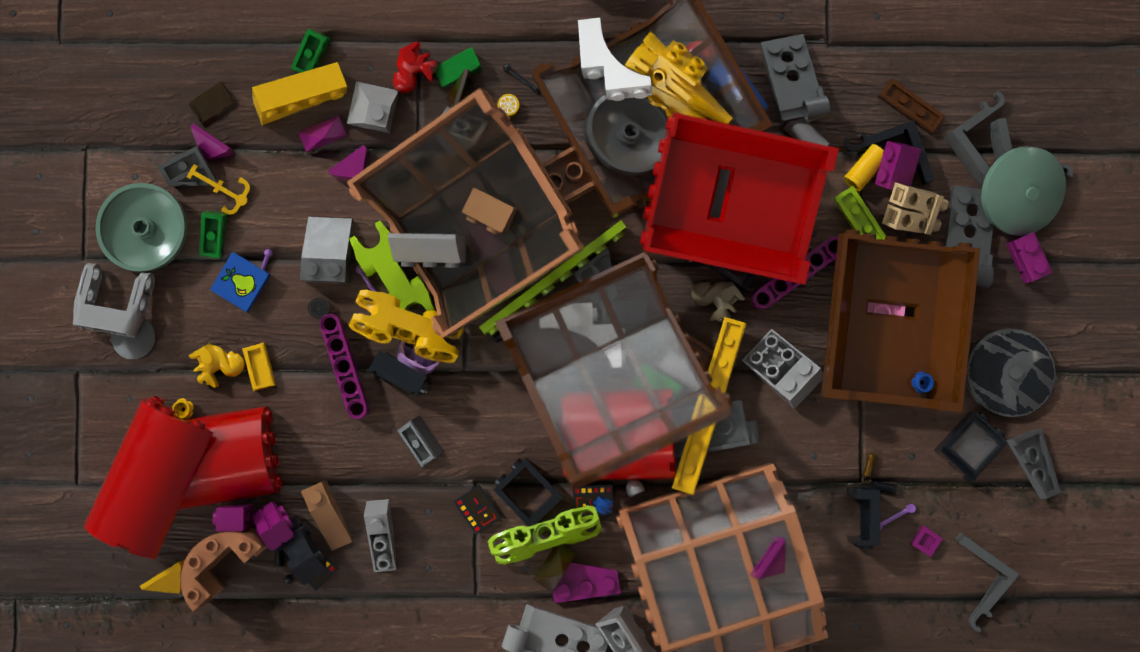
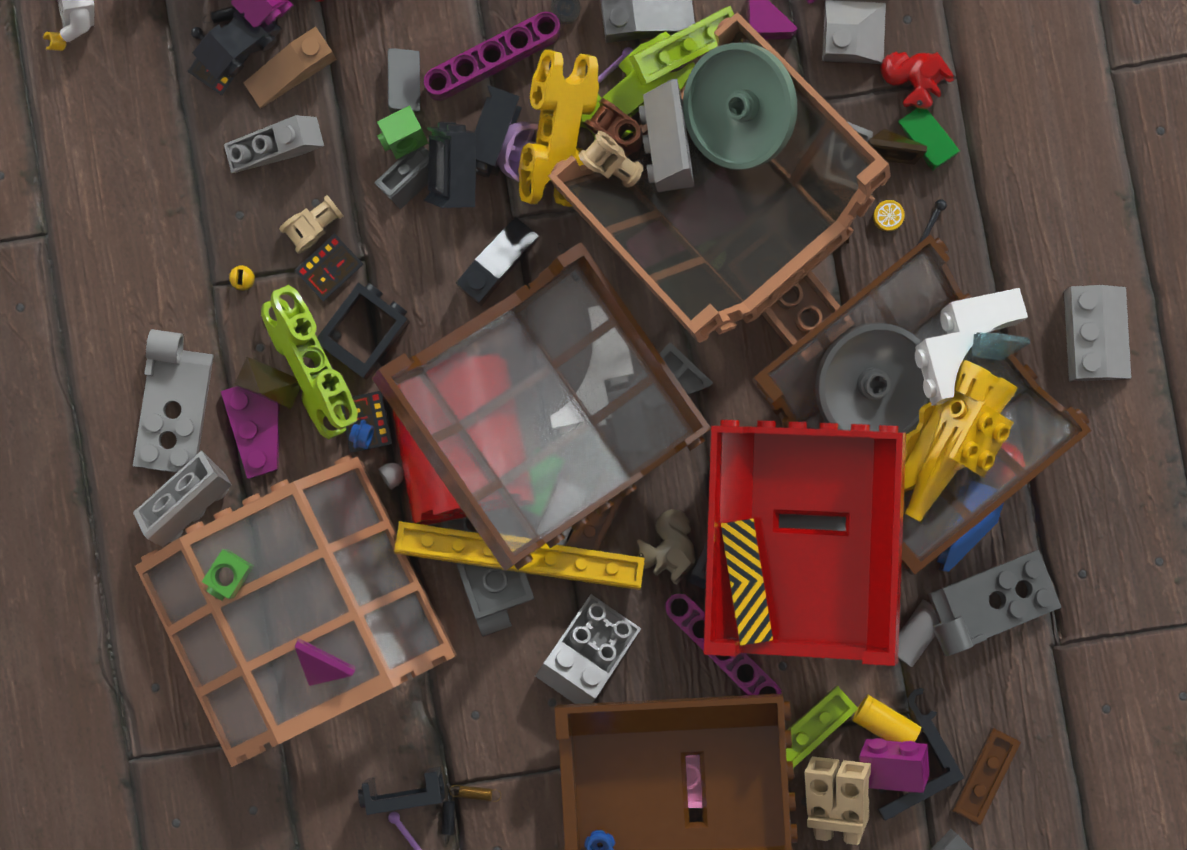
camera: 90 degrees right, 0 degrees up
(351, 433) = (403, 79): none -> slope
(362, 229) = (678, 47): none -> lime plate
(389, 441) = (401, 133): none -> bright green brick
(409, 288) = (614, 123): none -> copper piece
(414, 191) = (740, 105): none -> sand green dish
(421, 408) = (451, 166): none -> black window
(436, 292) = (609, 158): none -> tan connector
(444, 517) = (310, 224): none -> tan connector
(474, 569) = (247, 279): none -> yellow hinge
(490, 211) = (732, 210): medium nougat brick -> none
(493, 387) = (496, 261): none -> black slope
(561, 273) = (668, 326): lime plate -> none
(616, 43) = (997, 345): none -> clear light blue slope
(689, 612) = (240, 569): none -> bright green brick
(757, 245) = (746, 582): none -> sticker

